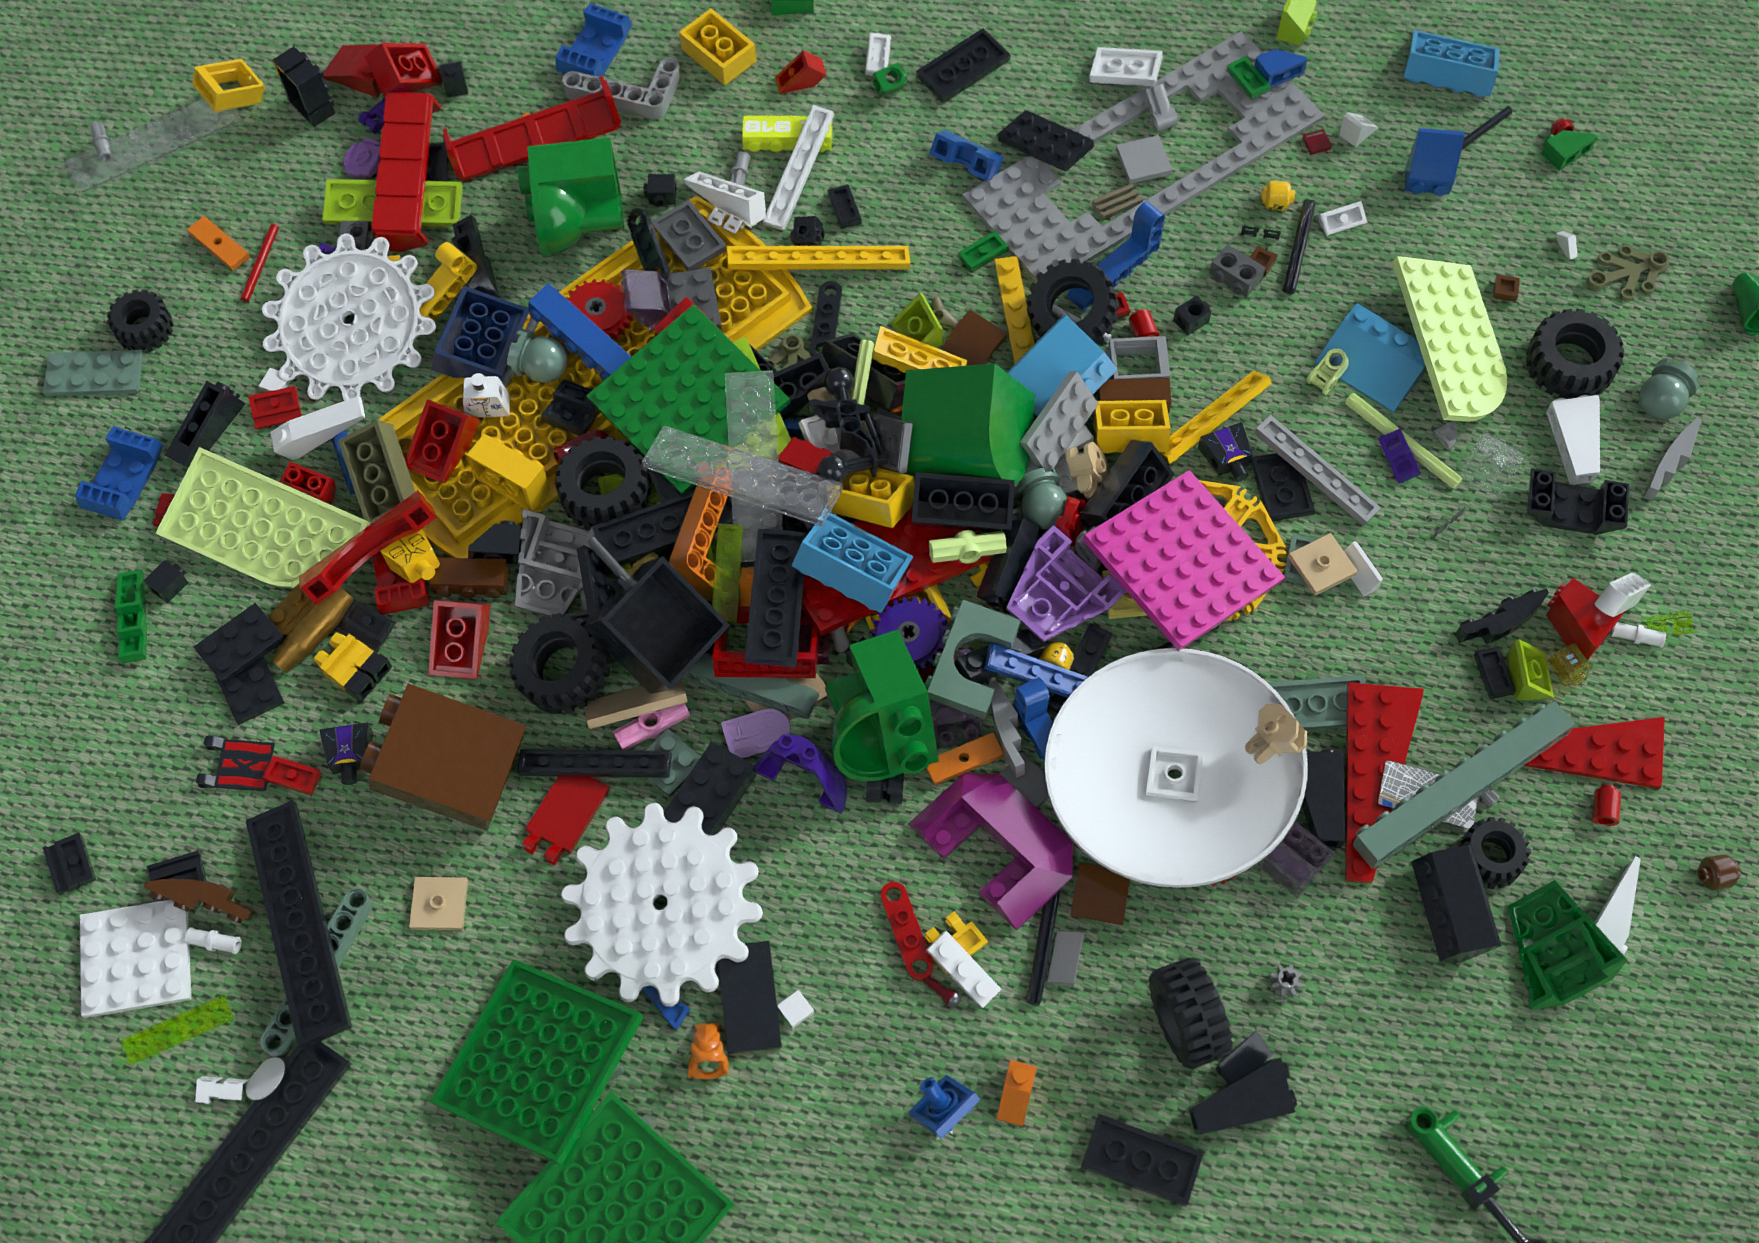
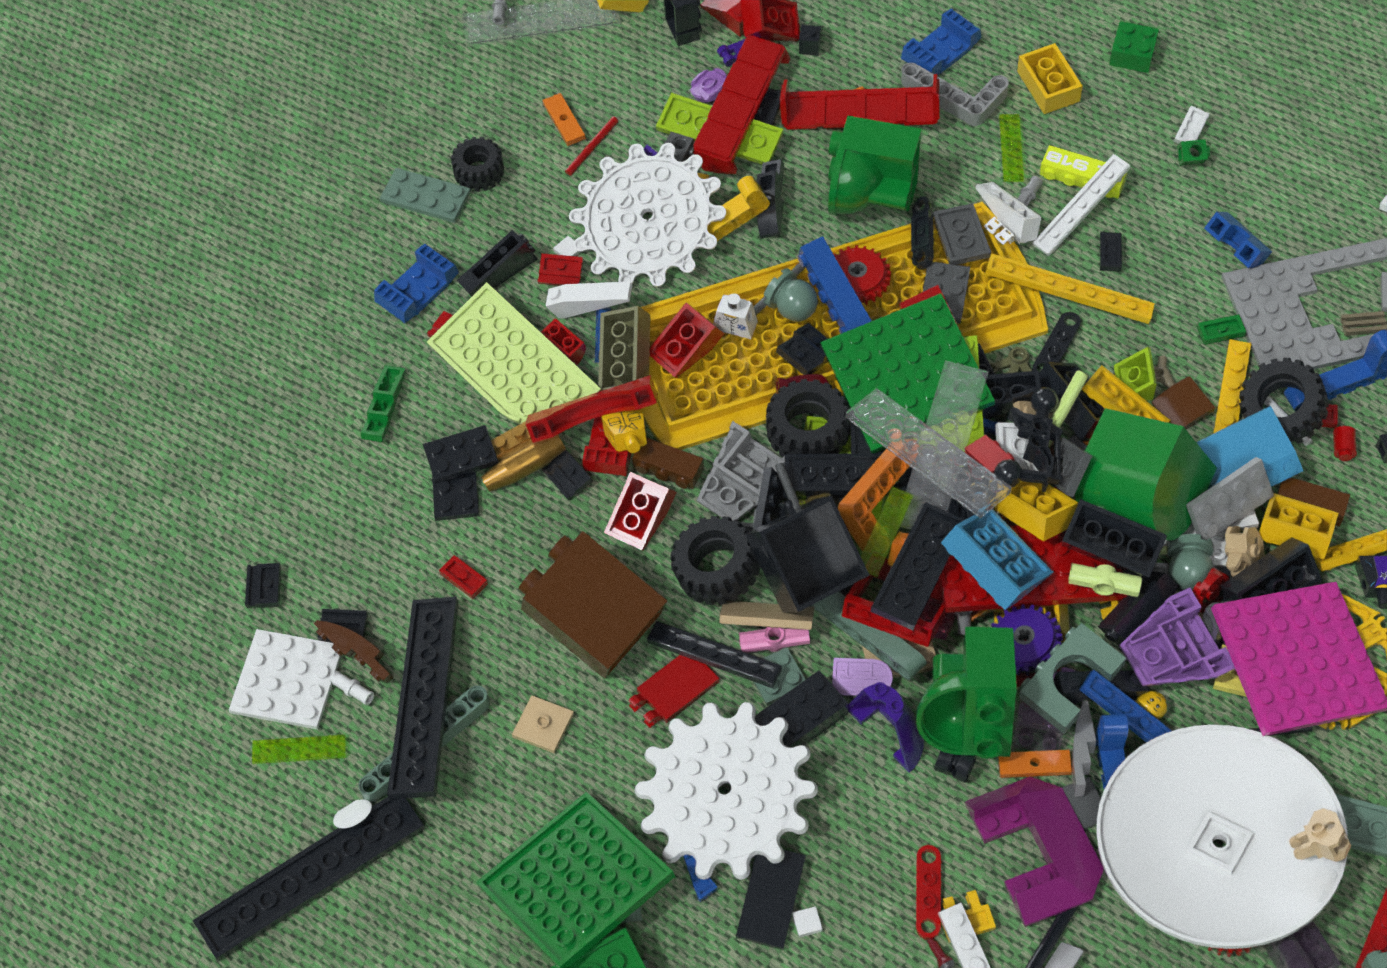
camera: 25 degrees right, 5 degrees down
(166, 581) = (421, 383): black brick -> none
(227, 1090) = (304, 805): white piece -> none
(239, 766) = (425, 553): flag -> none
(345, 749) = (512, 569): torso -> none
(352, 665) = (545, 504): yellow hips -> none
(478, 335) = (749, 263): dark blue slope -> none
(497, 542) = (700, 441): black slope -> none
(509, 472) = (732, 385): yellow brick -> none
(646, 296) = (904, 274): clear purple slope -> none
(661, 189) = (953, 187): black brick -> none
(704, 130) = (1011, 148): none -> clear neon green tile
(707, 1048) = (720, 924): orange hair -> none
(801, 73) = (1115, 123): red slope -> none
(807, 231) = (1068, 263): black brick -> none
(963, 65) = (1266, 159): black plate -> none
(1045, 140) = (1316, 248): black plate -> none
(1085, 658) = (1179, 713): black plate -> none
(1100, 894) = (1111, 924): reddish brown slope -> none
(1140, 345) = (1331, 457): light grey window -> none
(1325, 797) = (1351, 911): black slope -> none

